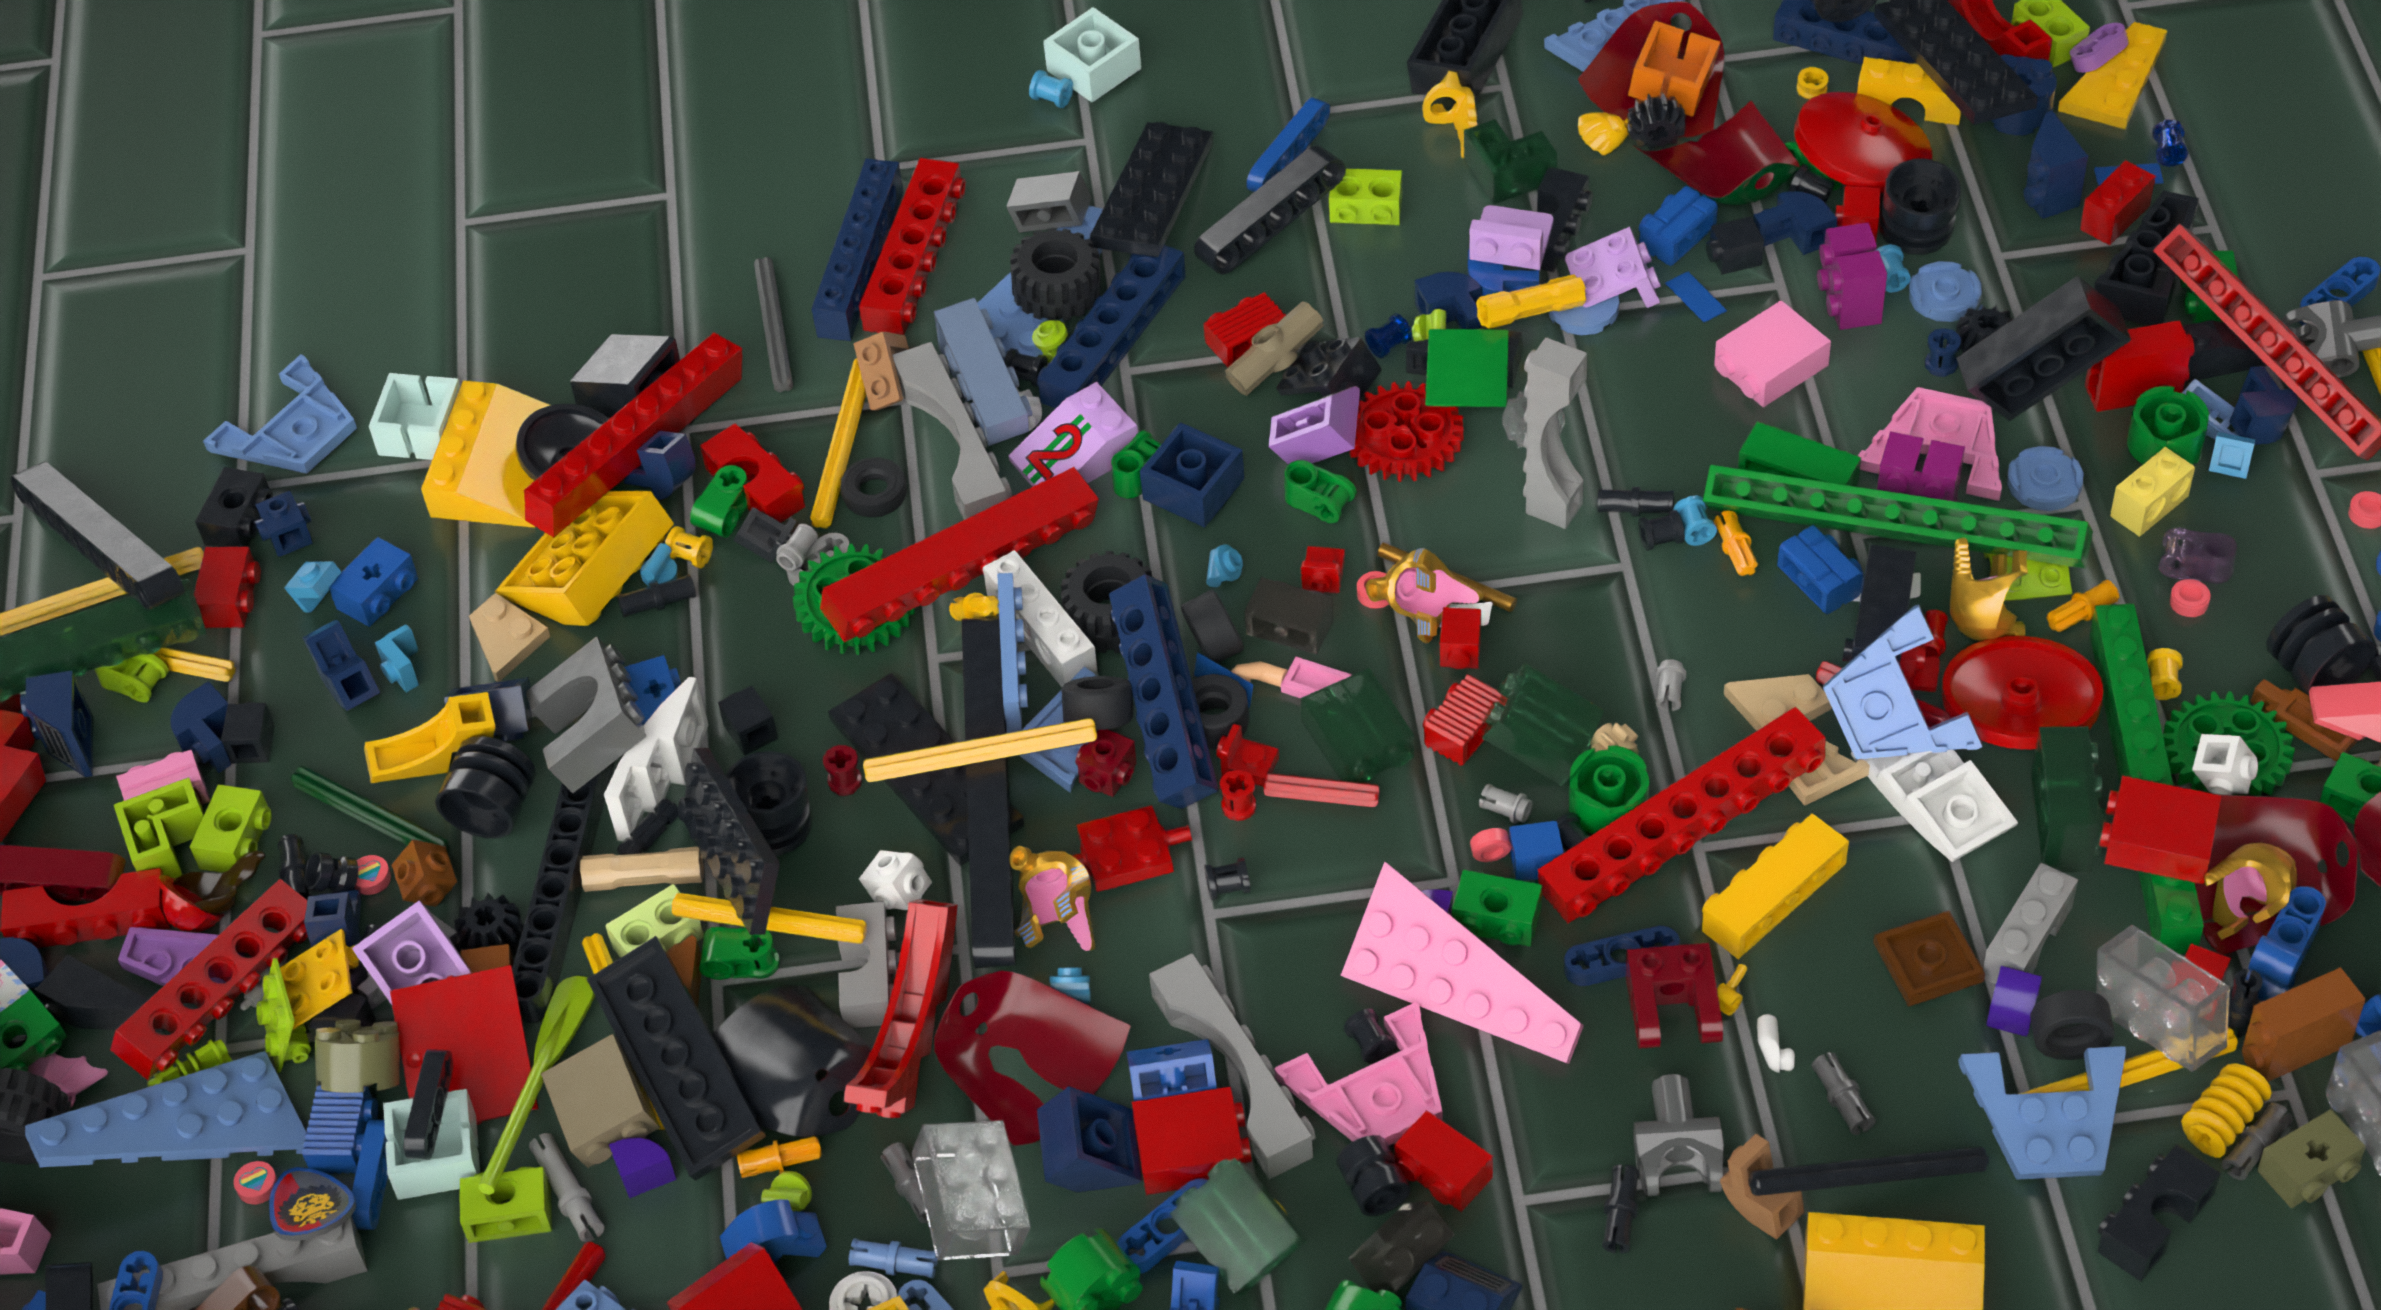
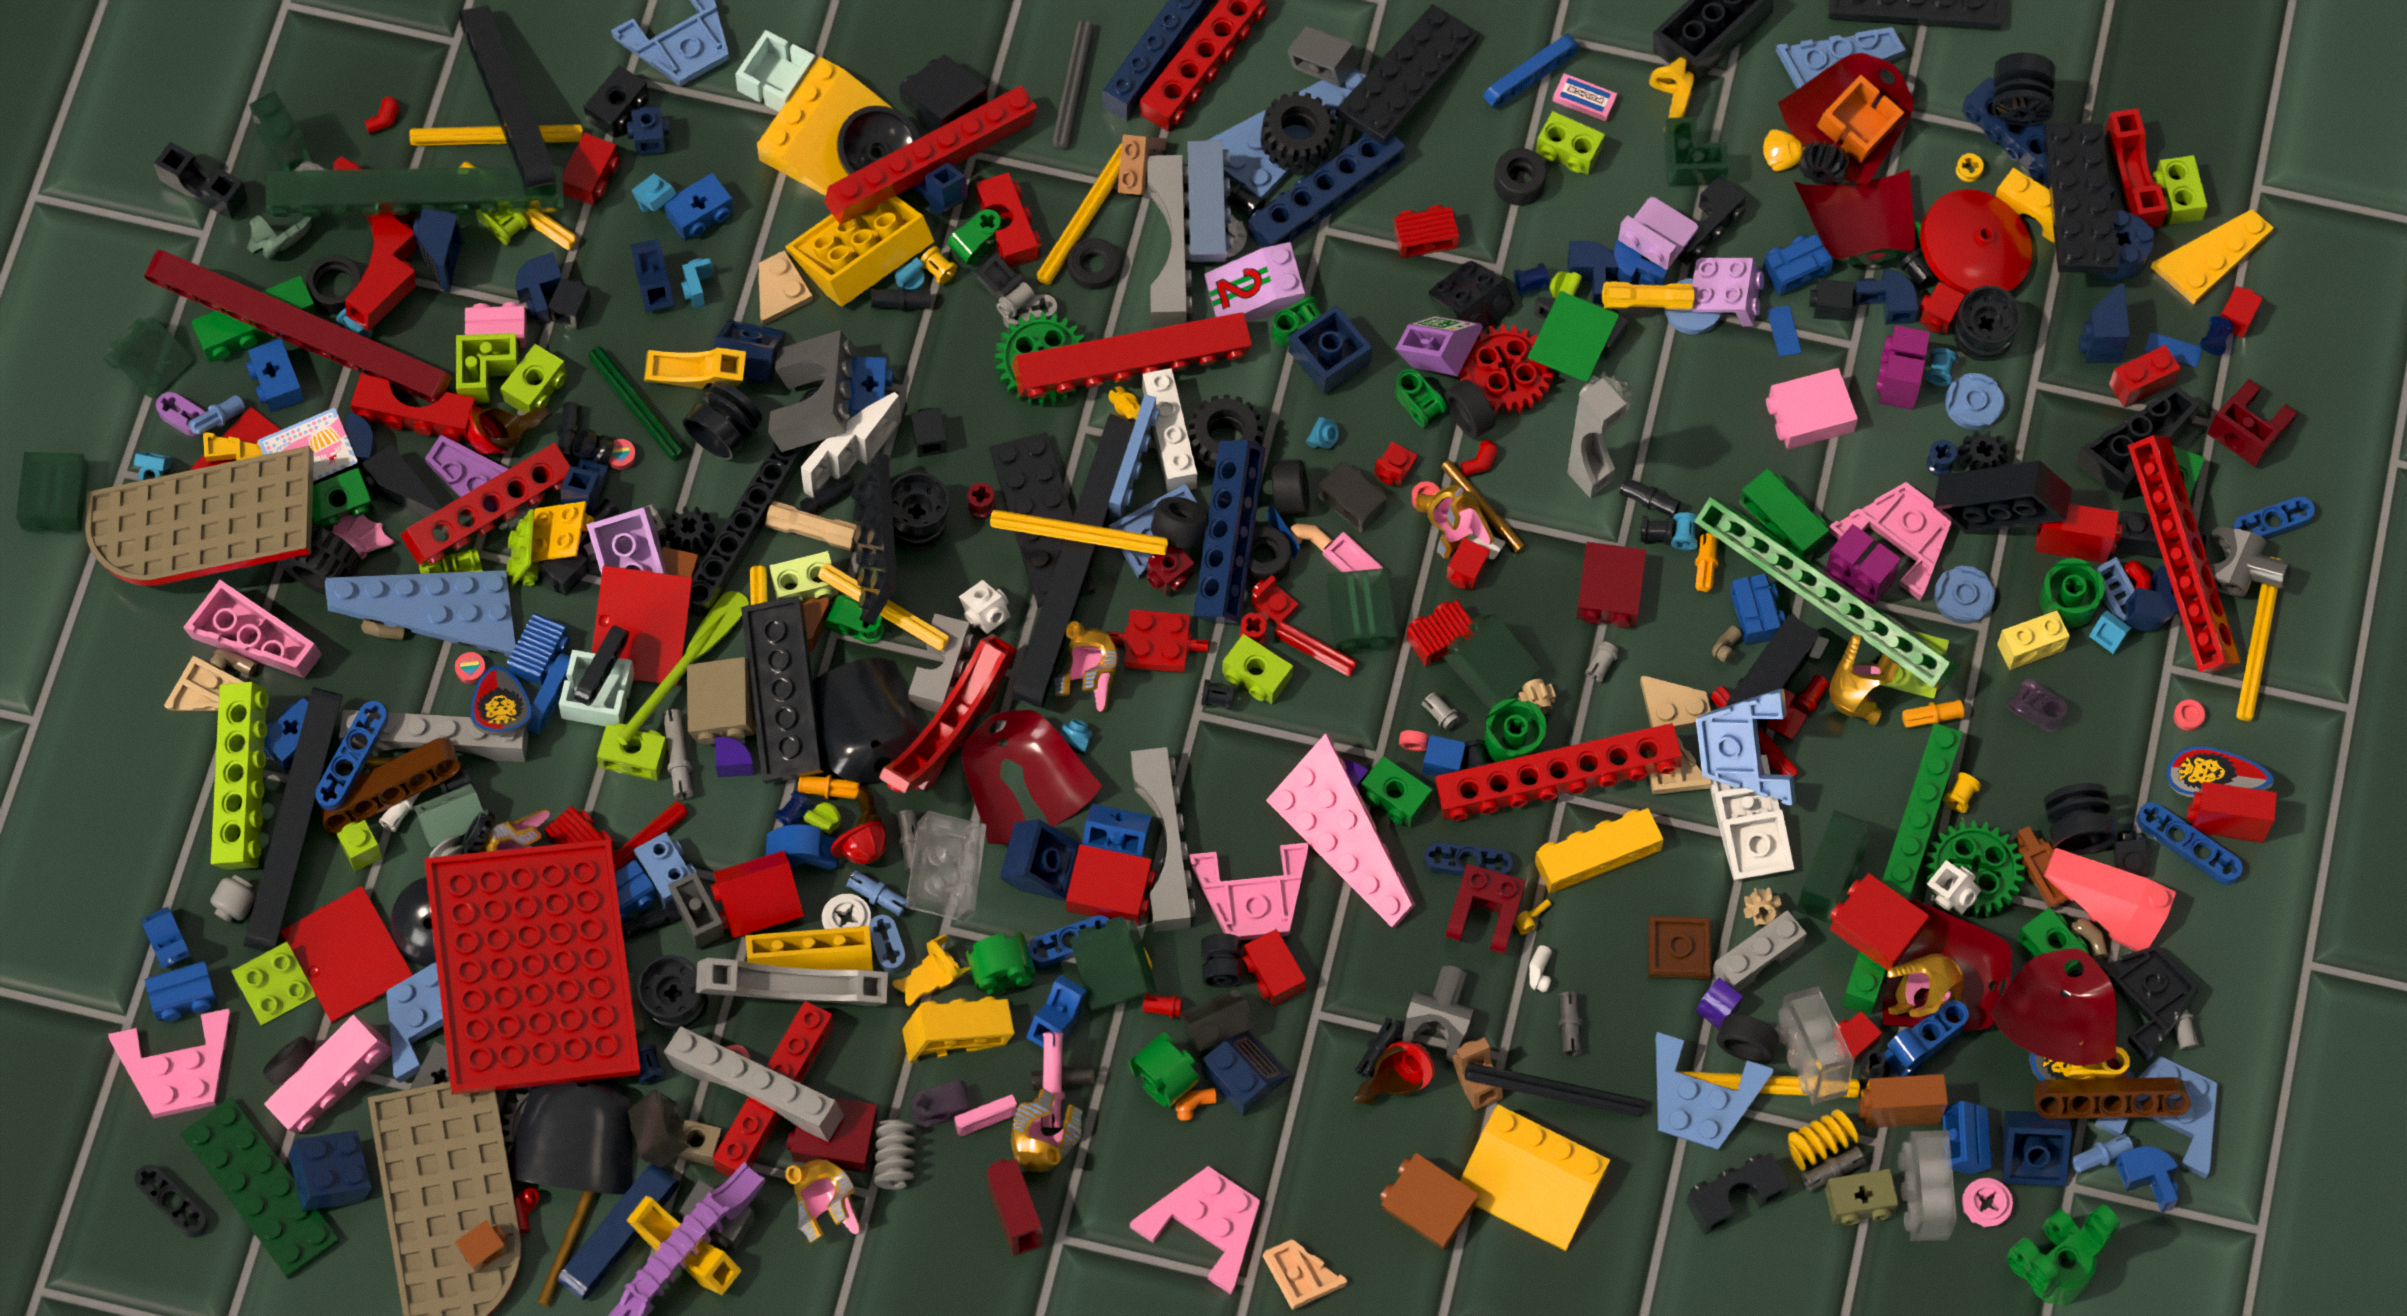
camera: 15 degrees right, 15 degrees up
(109, 1178) = (378, 629): none -> dark tan arm
(357, 1056) = (566, 606): olive brick -> none
(424, 873) = (658, 472): dark orange brick -> none
(744, 1195) = (794, 809): none -> clear blue bush
(850, 1198) = (868, 837): none -> red piece
(1049, 337) = (1273, 183): lime plate -> none
(1269, 209) = (1488, 131): black beam -> none
(1274, 348) = (1438, 259): dark tan piece -> none
(1281, 827) = (1250, 654): none -> lime brick
(1321, 1258) = (1162, 1005): none -> red pin
(1326, 244) = (1520, 160): none -> black tyre
(1363, 152) = (1584, 97): none -> tile
(1369, 1036) = (1265, 855): black bush -> none
(1395, 467) = (1470, 408): none -> black tyre
(1424, 529) = (1483, 461): none -> red arm
(1638, 601) = (1611, 584): none -> dark red brick
(1663, 1222) = (1398, 1071): none -> piece
(1803, 619) = (1722, 648): none -> dark tan arm
(2004, 875) = (1762, 906): none -> tan gear
(2021, 685) = (1848, 768): red dish -> none
(2099, 47) = (2208, 225): medium lavender beam -> none
(2184, 106) = (2241, 309): none -> red brick
(2190, 598) = (2017, 736): coral tile -> none
(2223, 386) = (2136, 570): none -> red arm
(2274, 209) = (2244, 431): none -> dark red brick

